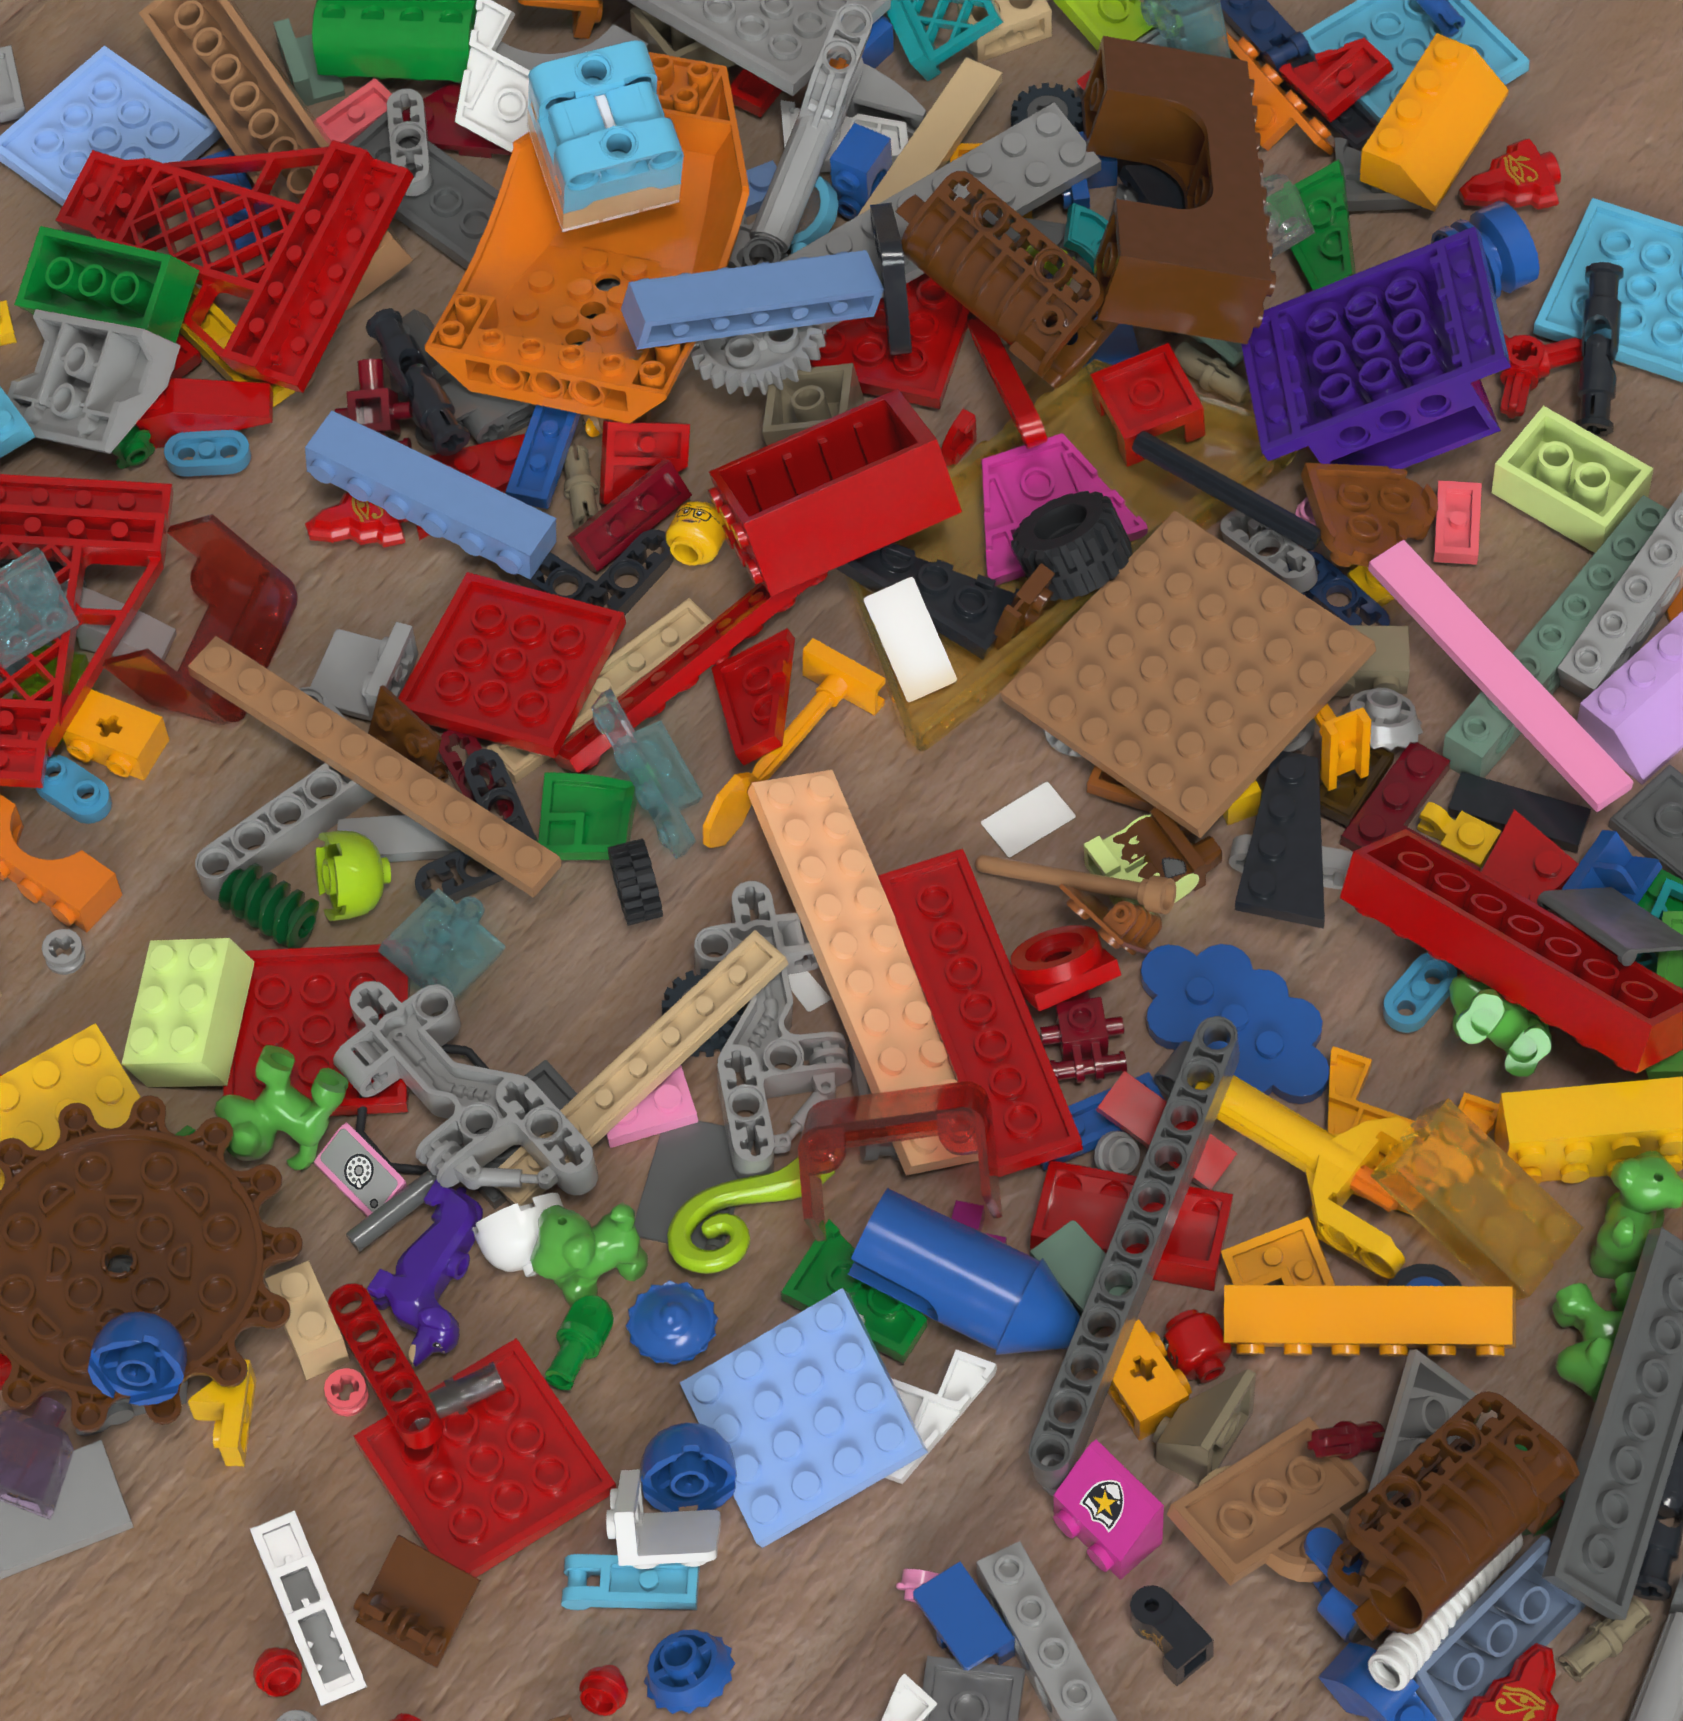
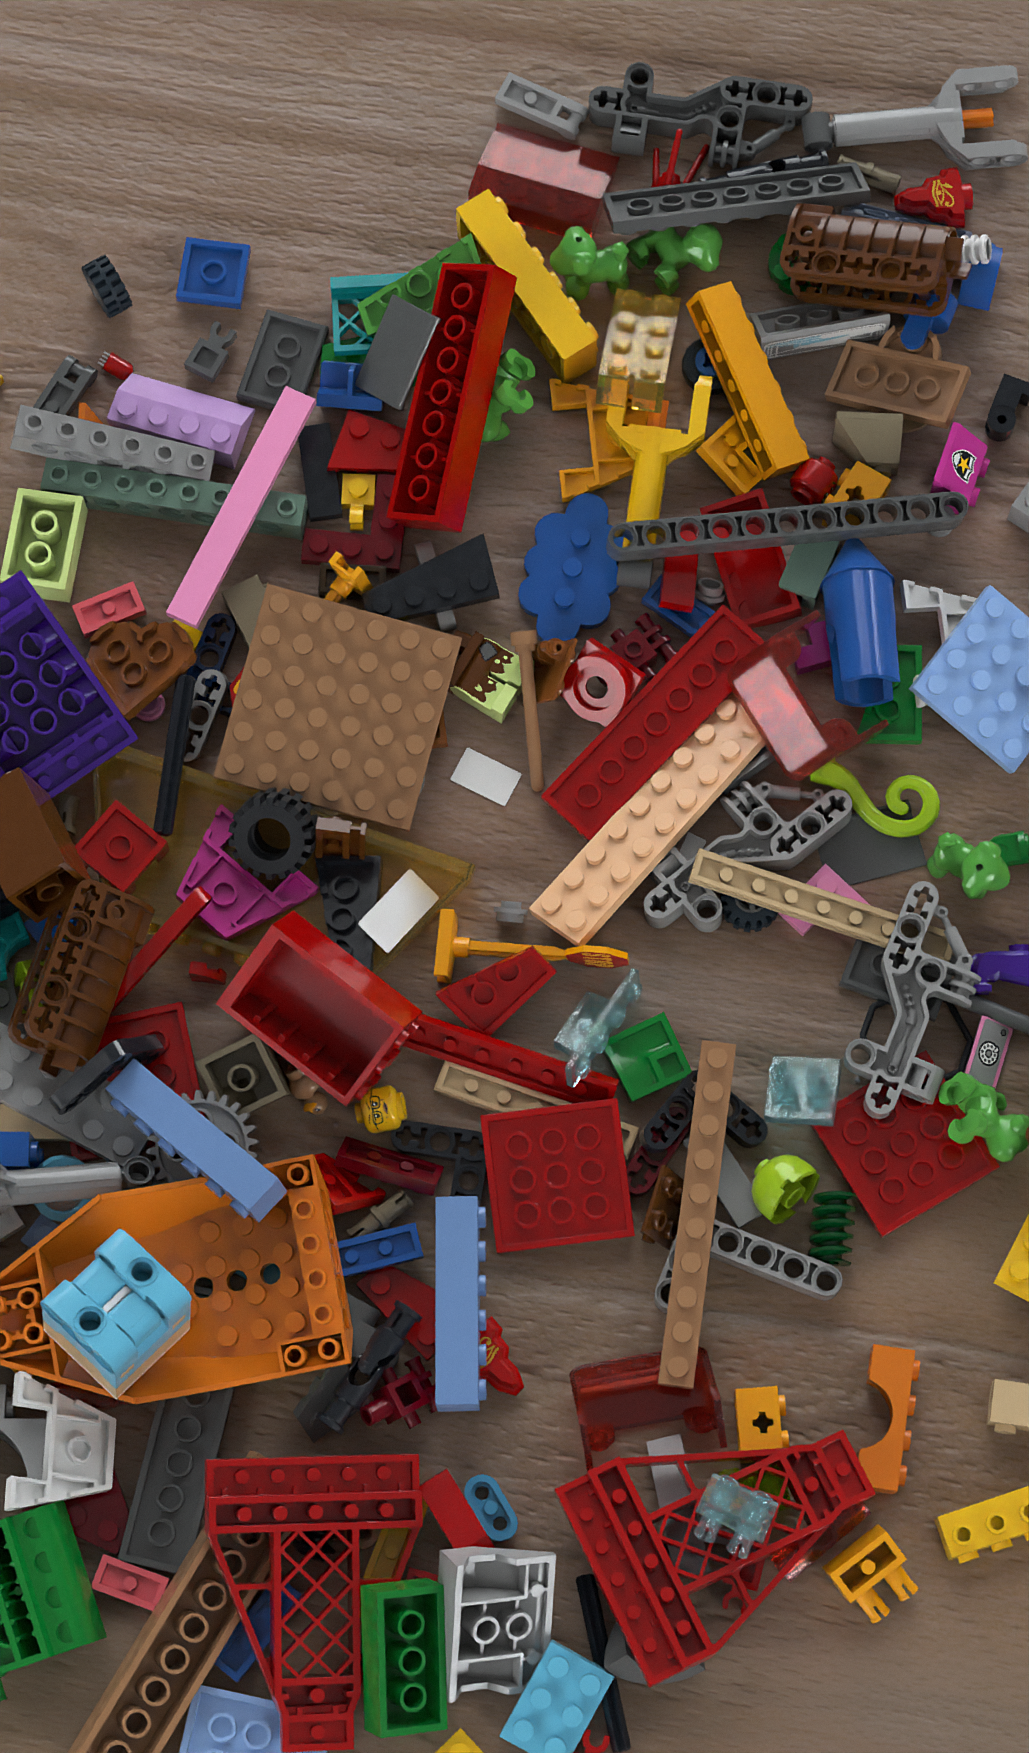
camera: 120 degrees left, 15 degrees up
(62, 963) = (948, 1350): light grey bush -> none
(69, 785) = (810, 1431): dark azure plate -> none
(188, 1012) = (948, 1226): yellowish green brick -> none
(302, 69) = (92, 1662): sand green panel -> none
(361, 664) = (615, 1278): light grey bracket -> none
(416, 127) = (125, 1540): light grey beam -> none
(511, 1234) = (978, 919): white cylinder -> none
(635, 881) = (685, 989): black tyre -> none
(672, 1322) = (982, 793): blue piece -> none
(843, 758) = (510, 912): none -> light grey plate
(1346, 1439) = (832, 360): dark red axle -> none
(1391, 715) = (301, 574): light grey piece -> none
(1417, 994) = (493, 464): dark azure plate -> none

